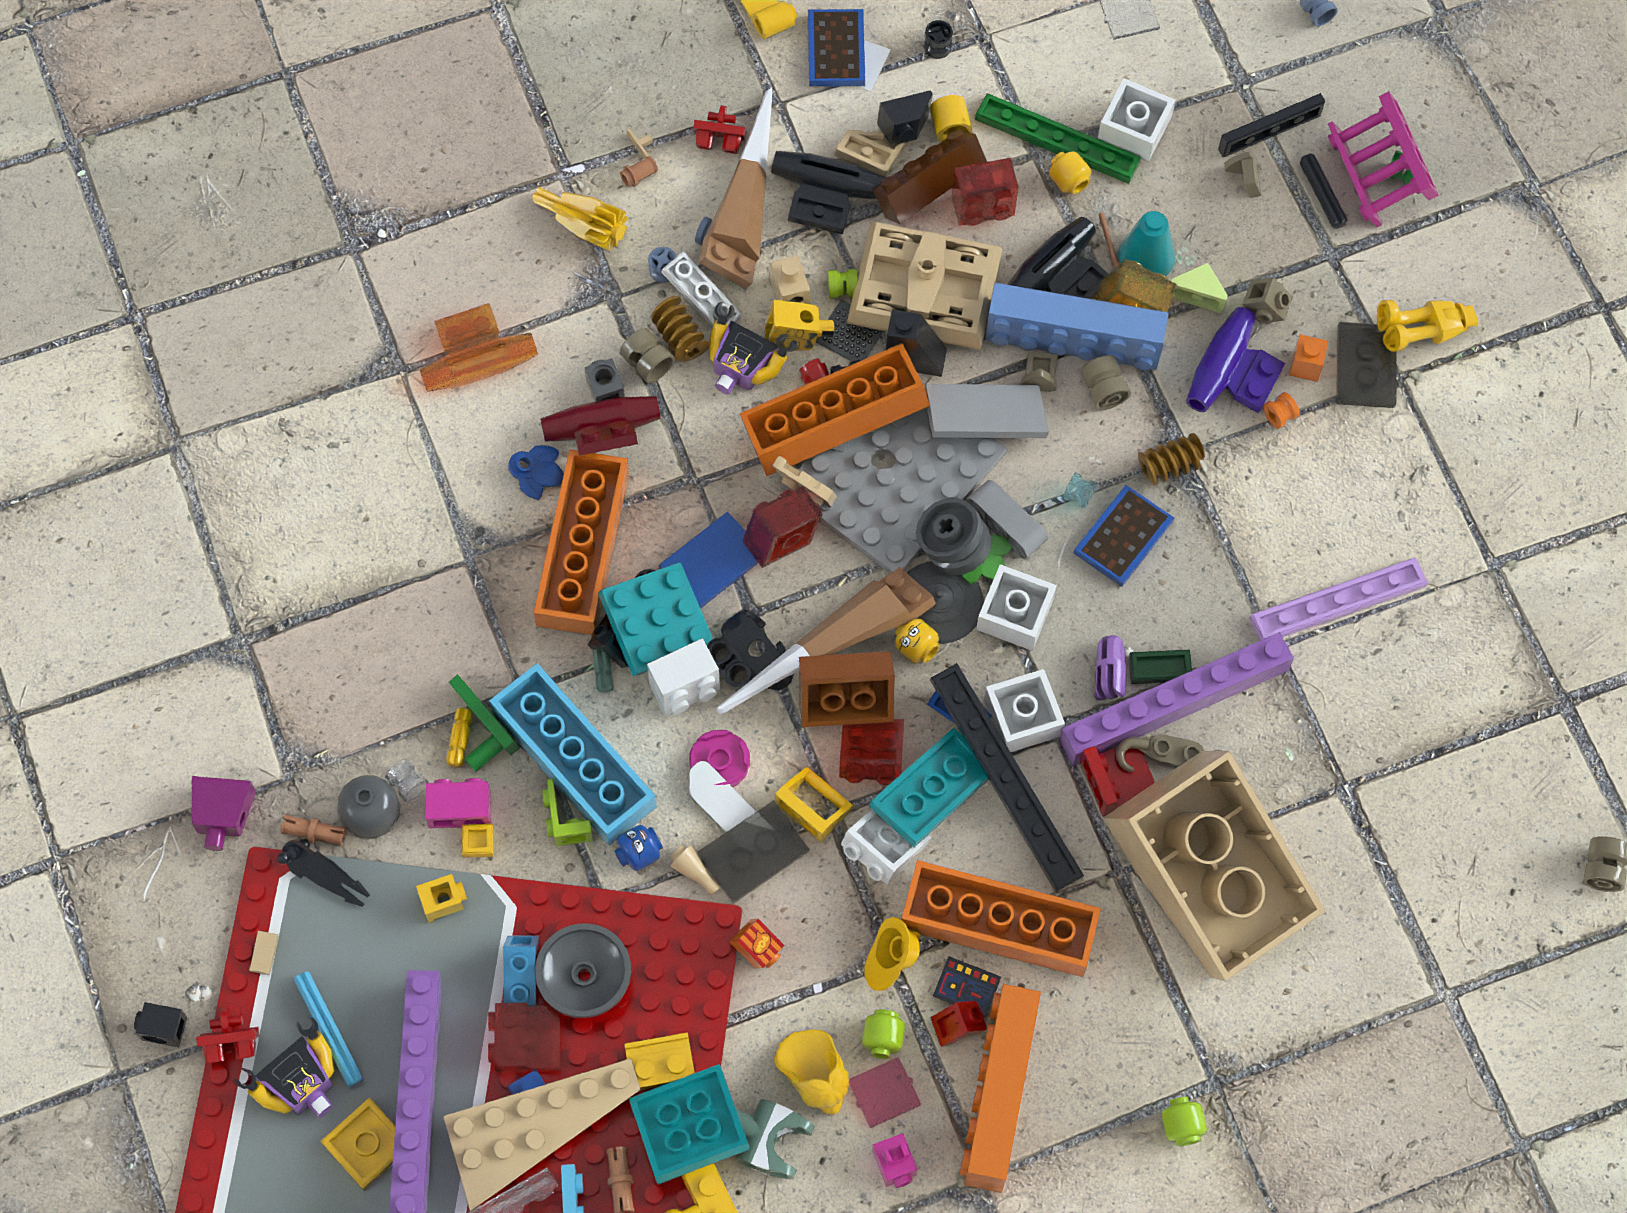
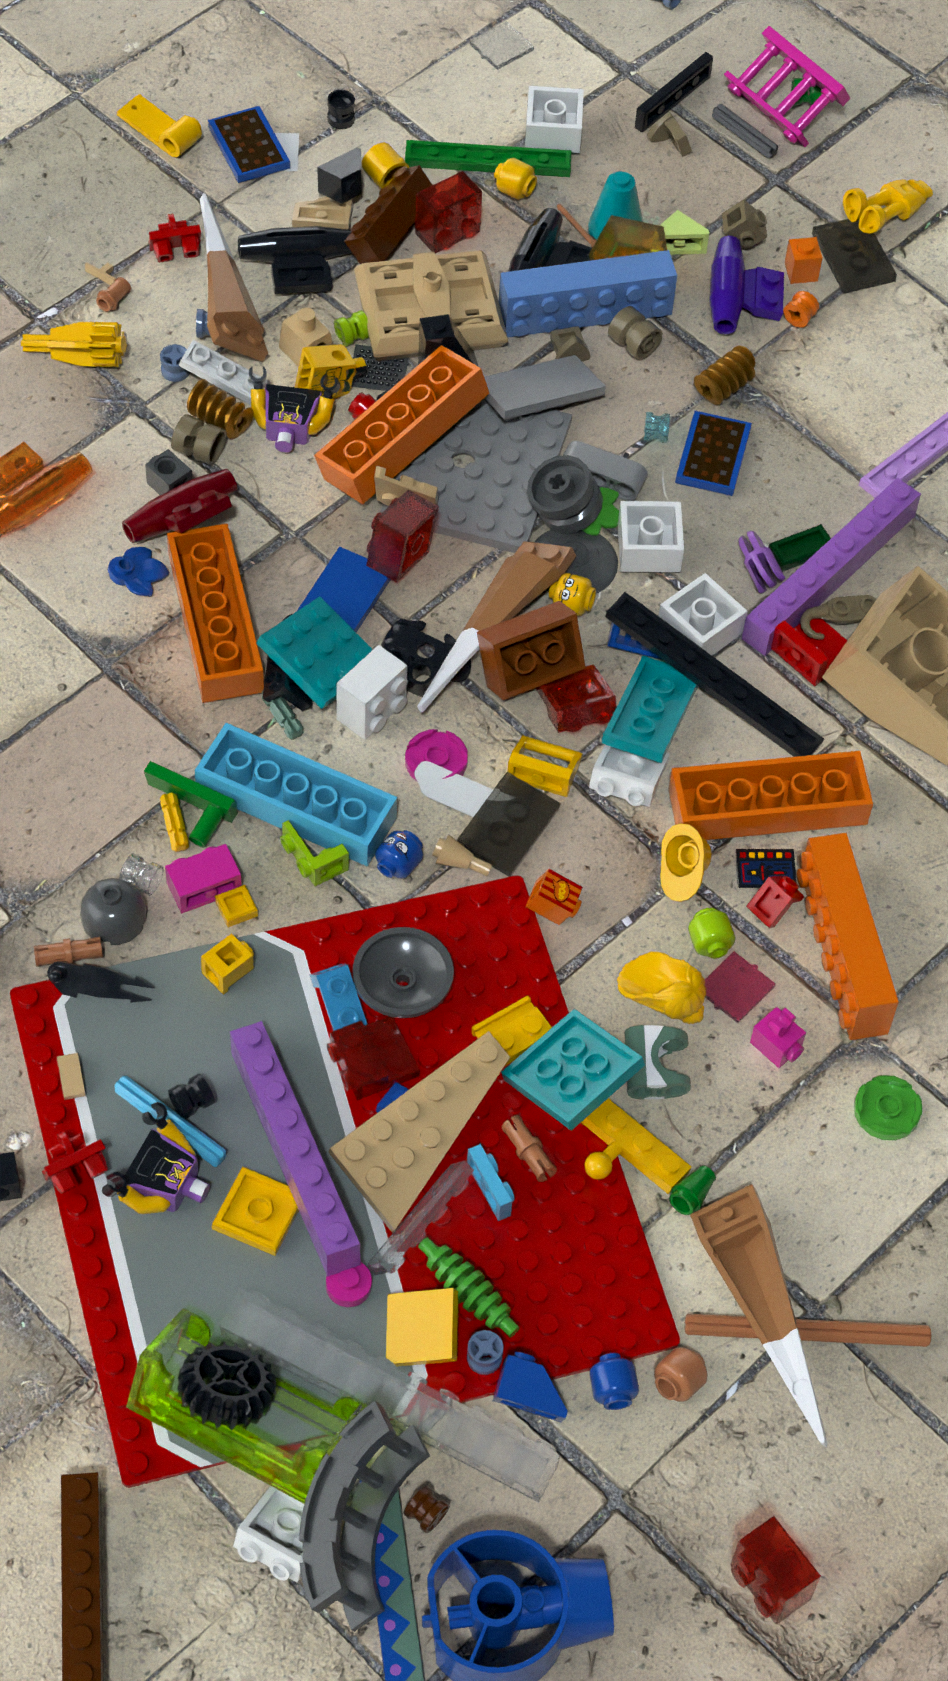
camera: 25 degrees left, 10 degrees down
(351, 1014) = (190, 1096): none -> black wheel

